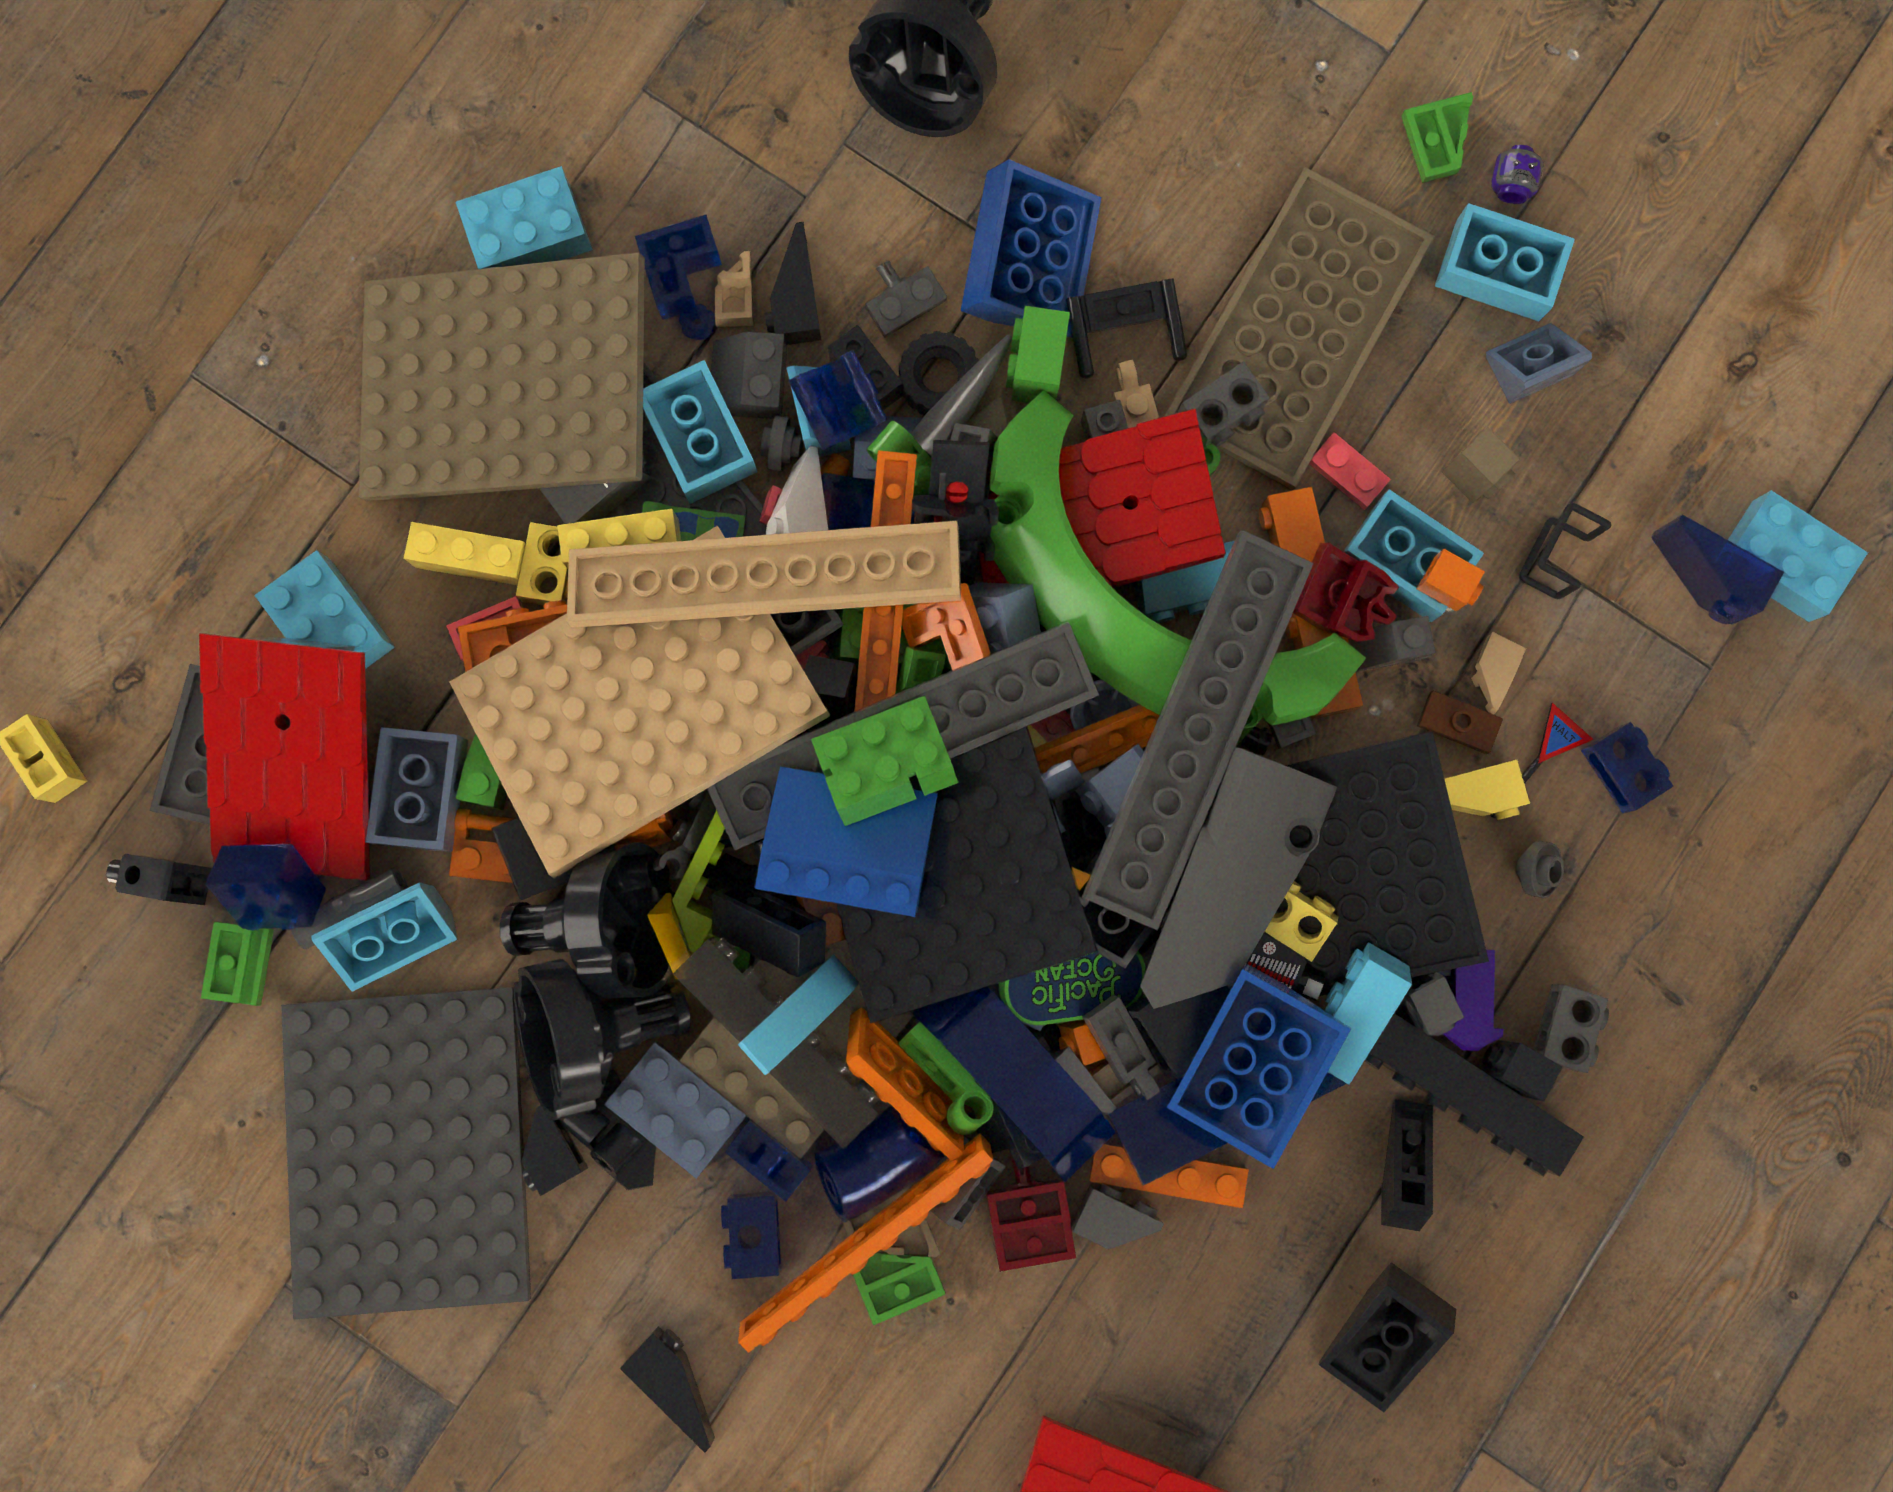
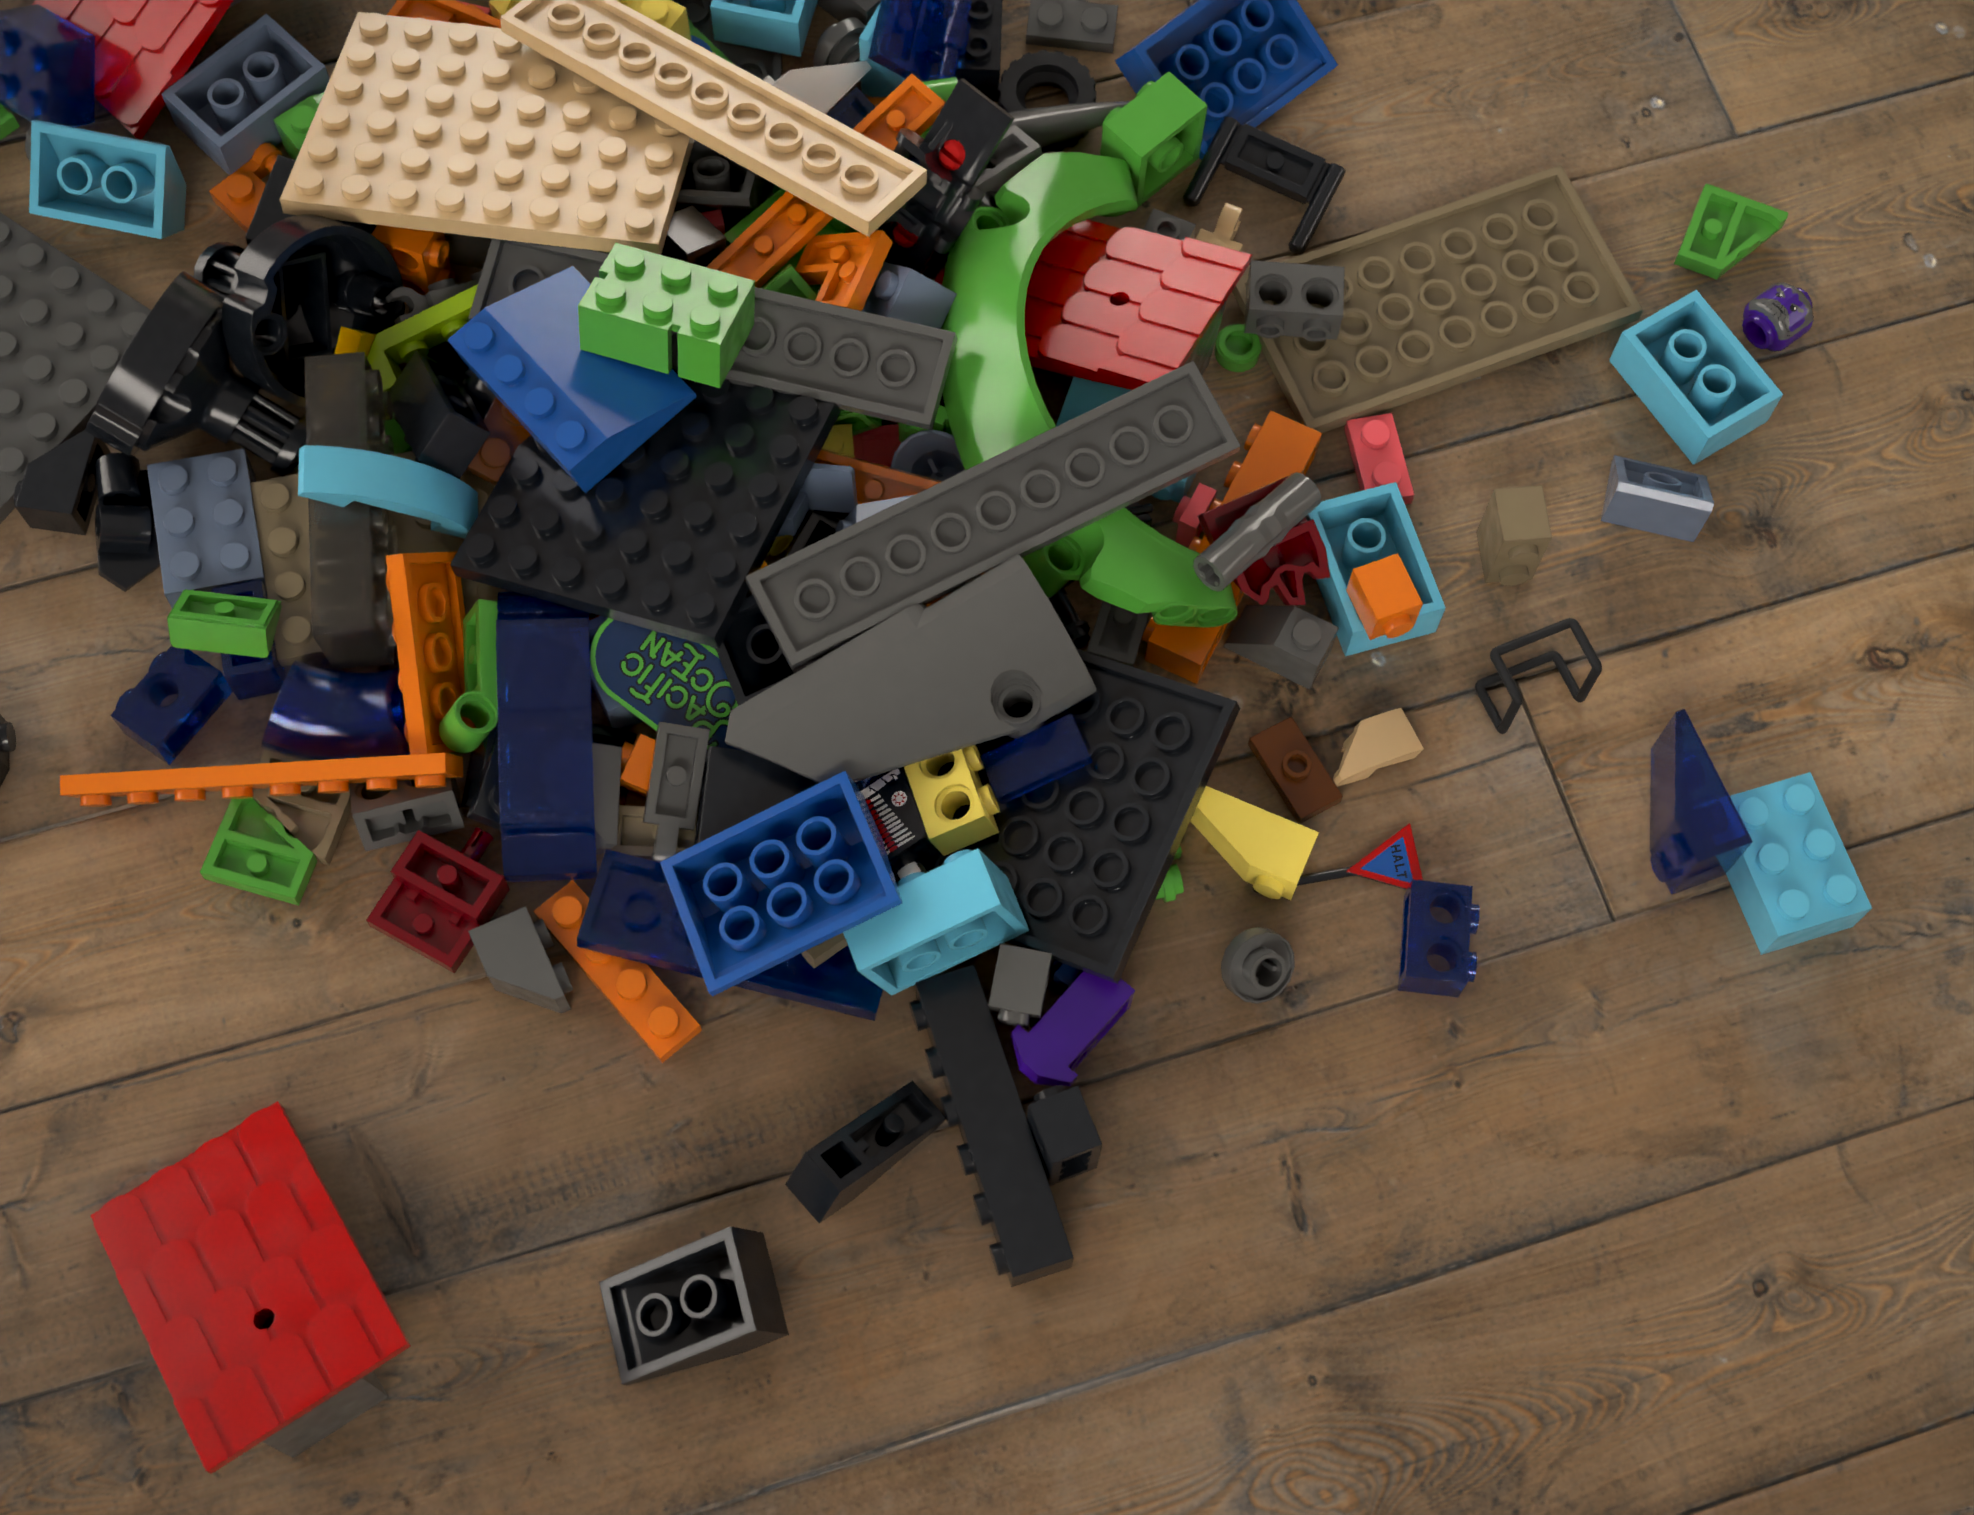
camera: 40 degrees right, 15 degrees down
(755, 1168) = (224, 623): none -> bright green slope
(1331, 857) = (1036, 759): none -> clear blue tile
(1347, 600) = (1257, 531): none -> dark grey axle
(1560, 1024) = (1147, 1138): dark grey brick -> none

